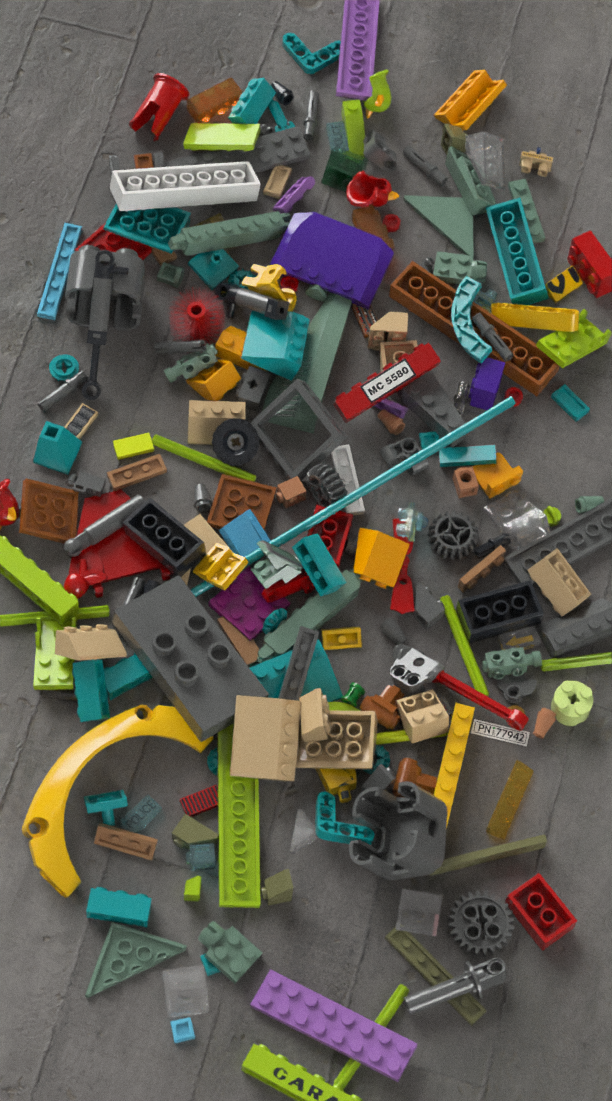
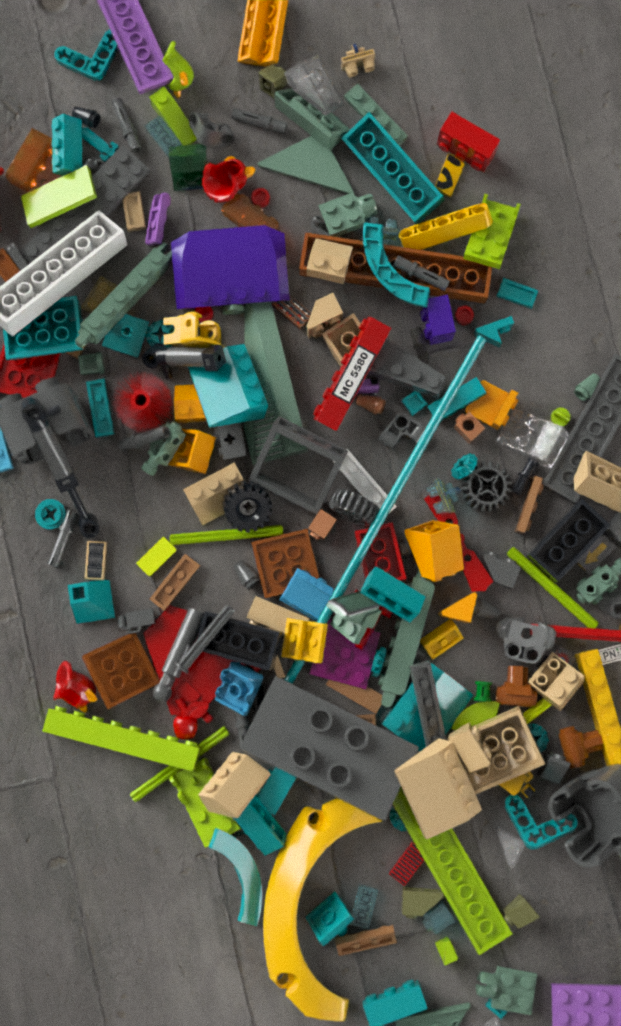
camera: 20 degrees left, 20 degrees up
(56, 725) = (247, 873): none -> teal tile
(138, 516) = (205, 638): none -> dark grey axle
(139, 576) = (238, 687): none -> dark azure slope
(156, 311) = (100, 408): none -> teal tile
(370, 614) = (460, 610): none -> light orange slope
(418, 289) = (329, 261): none -> tan slope
(442, 508) = (464, 466): none -> teal gear
(528, 417) = (491, 330): none -> teal slope

